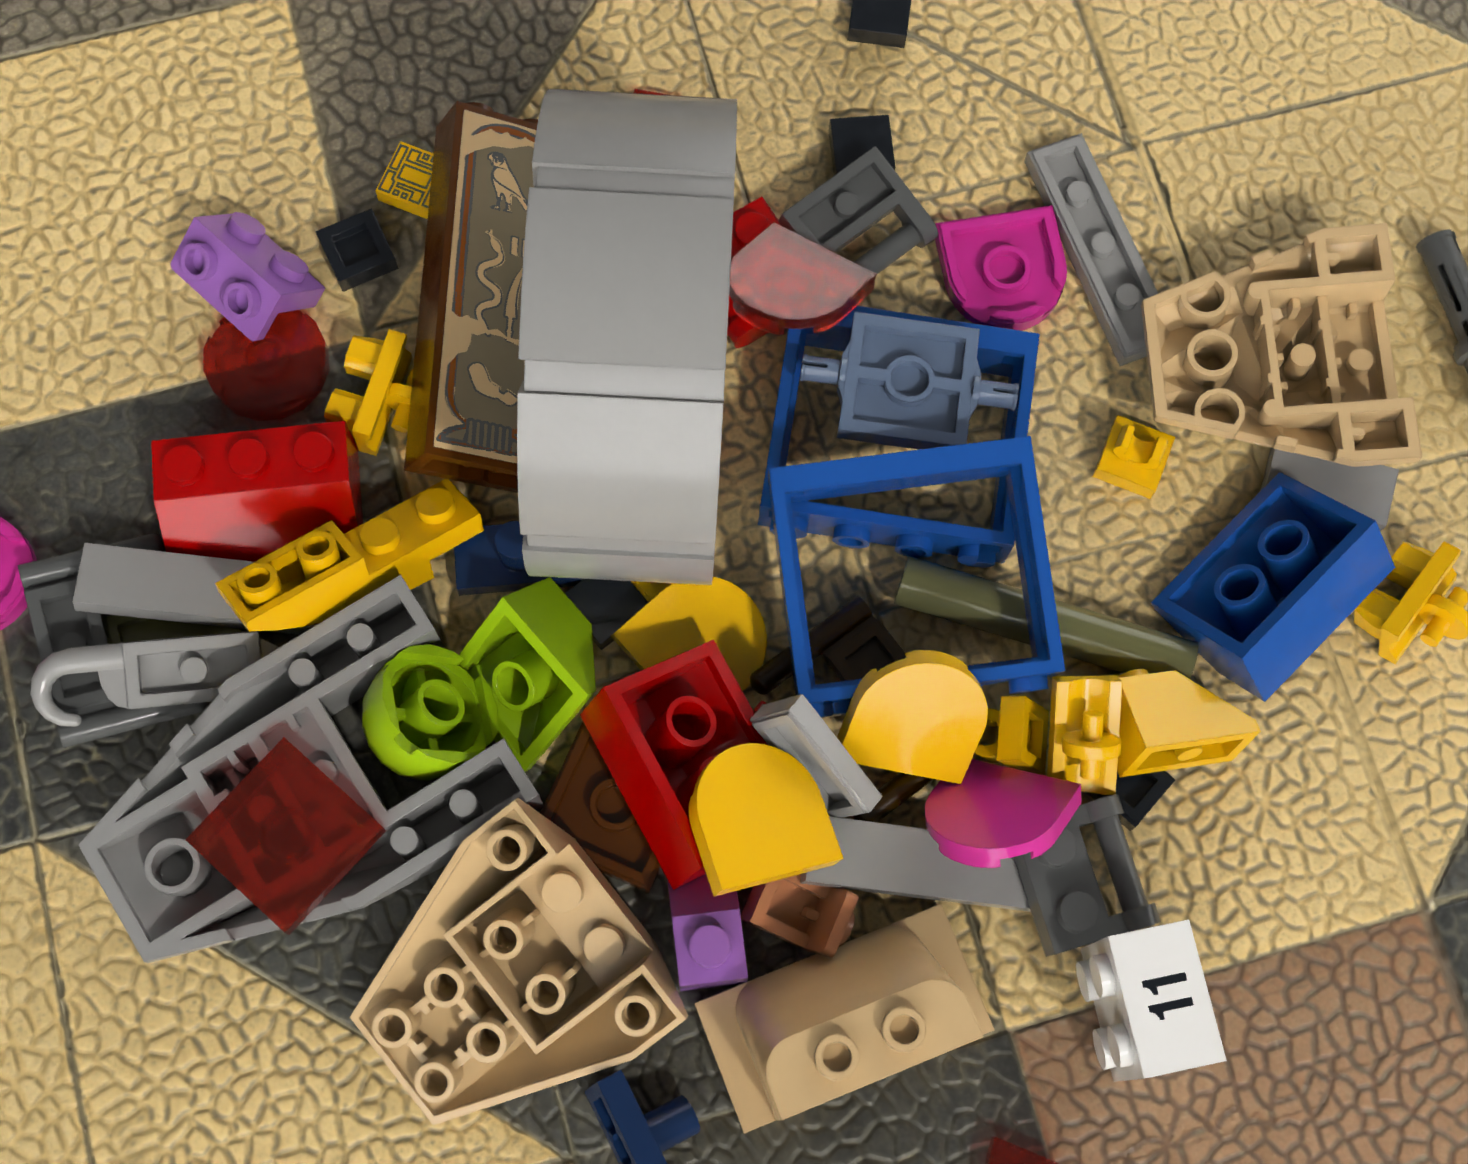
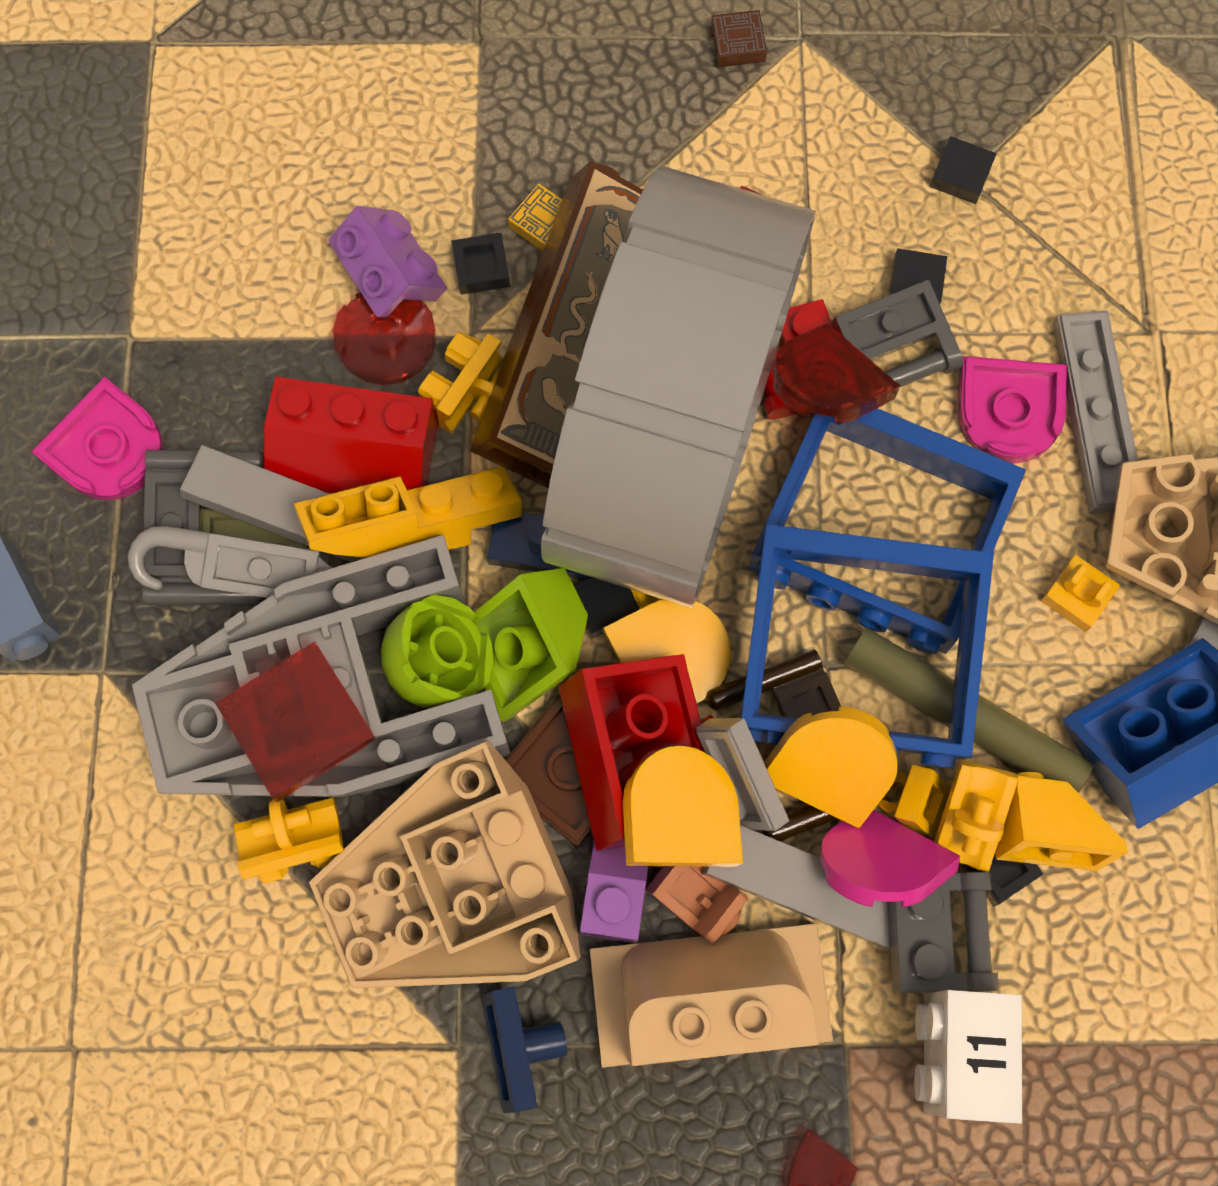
camera: 20 degrees right, 0 degrees up
(311, 974) = (287, 839): none -> yellow hips
(908, 382) = (903, 482): sand blue plate -> none

